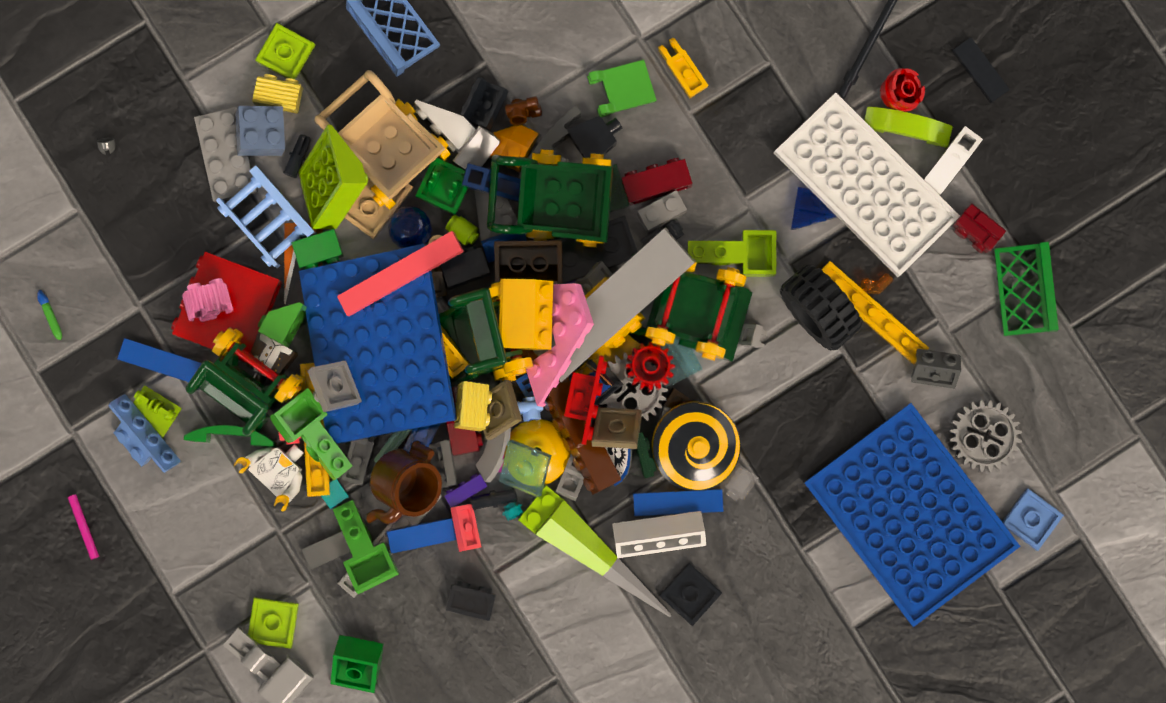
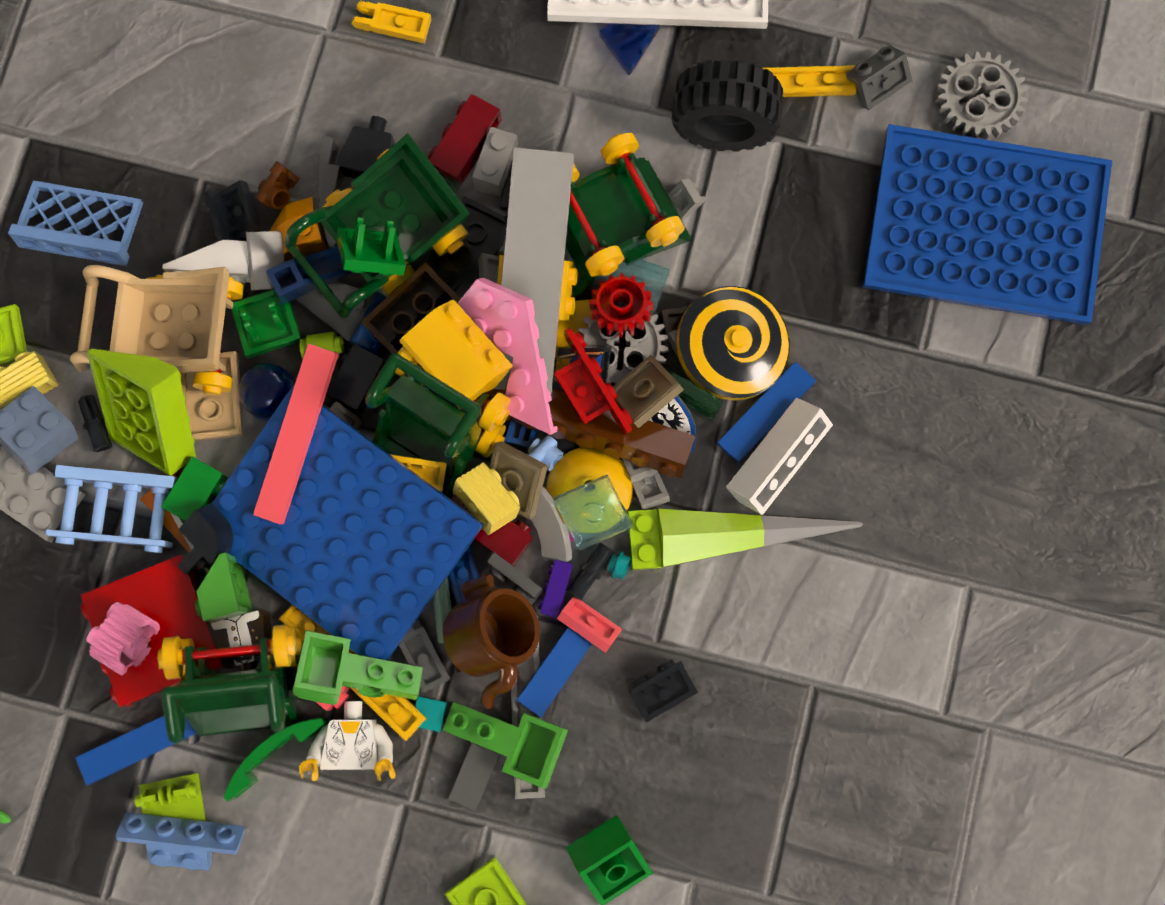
camera: 40 degrees left, 5 degrees down
(303, 286) = (210, 536): none -> black brick
(334, 386) = (330, 603): light grey tile -> none
(533, 210) = (370, 250): none -> green plate
(624, 86) = (354, 84): bright green flag -> none
(690, 594) = (861, 486): black tile -> none
(740, 483) = (807, 339): clear brick -> none
(754, 252) = (610, 115): lime plate -> none
(876, 287) = (756, 54): clear orange arm -> none
(1032, 519) = (1094, 130): medium blue tile -> none

